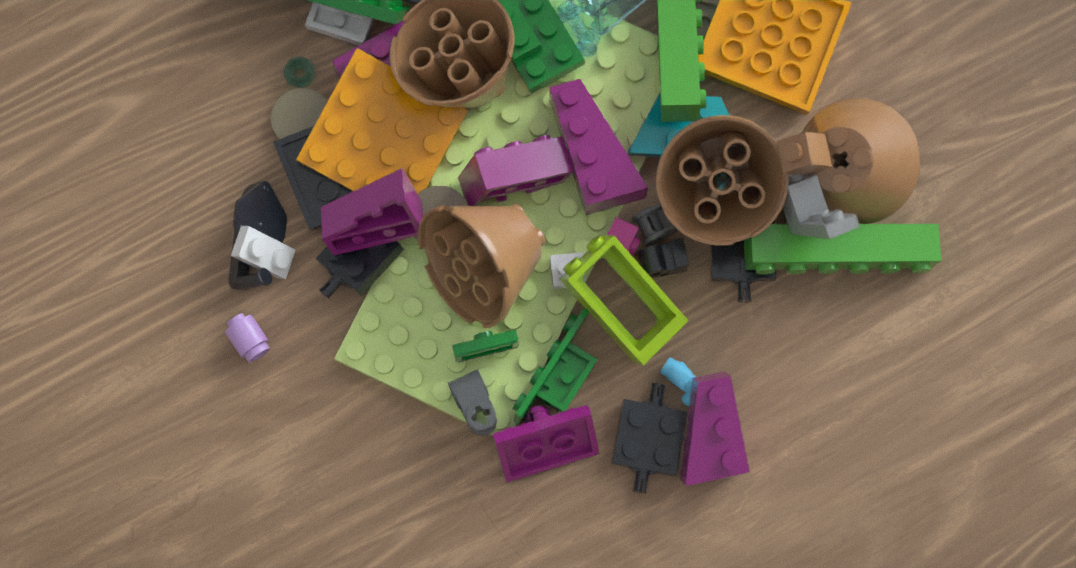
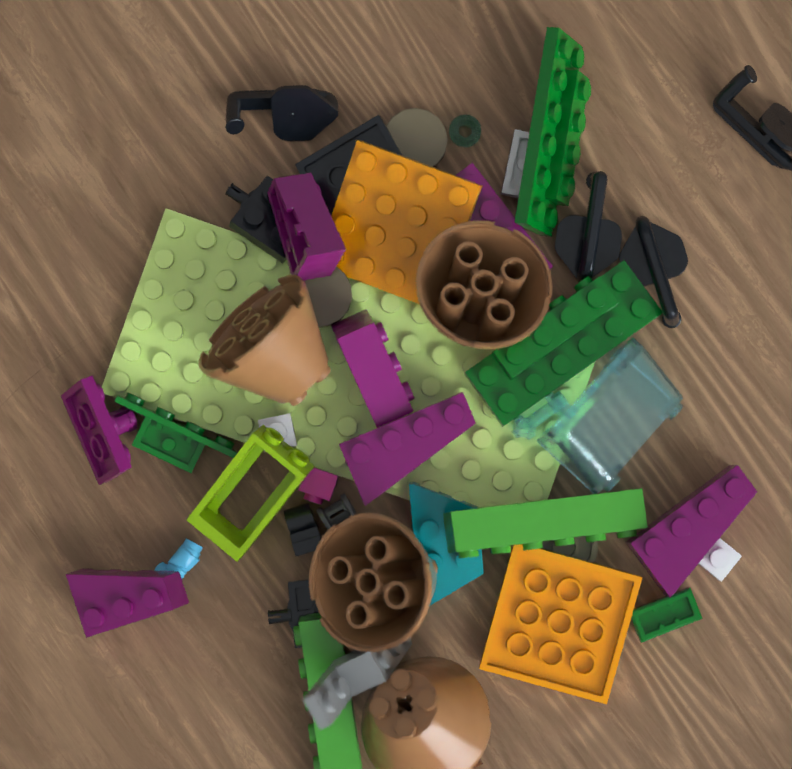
camera: 85 degrees right, 10 degrees up
(247, 337) = (177, 118): lavender brick -> none
(263, 252) = (262, 121): white plate -> none
(472, 399) = (134, 349): dark grey piece -> none
(485, 344) = (188, 357): green plate -> none
(649, 438) = (119, 533): black plate -> none
(804, 153) = (401, 666): medium nougat brick -> none

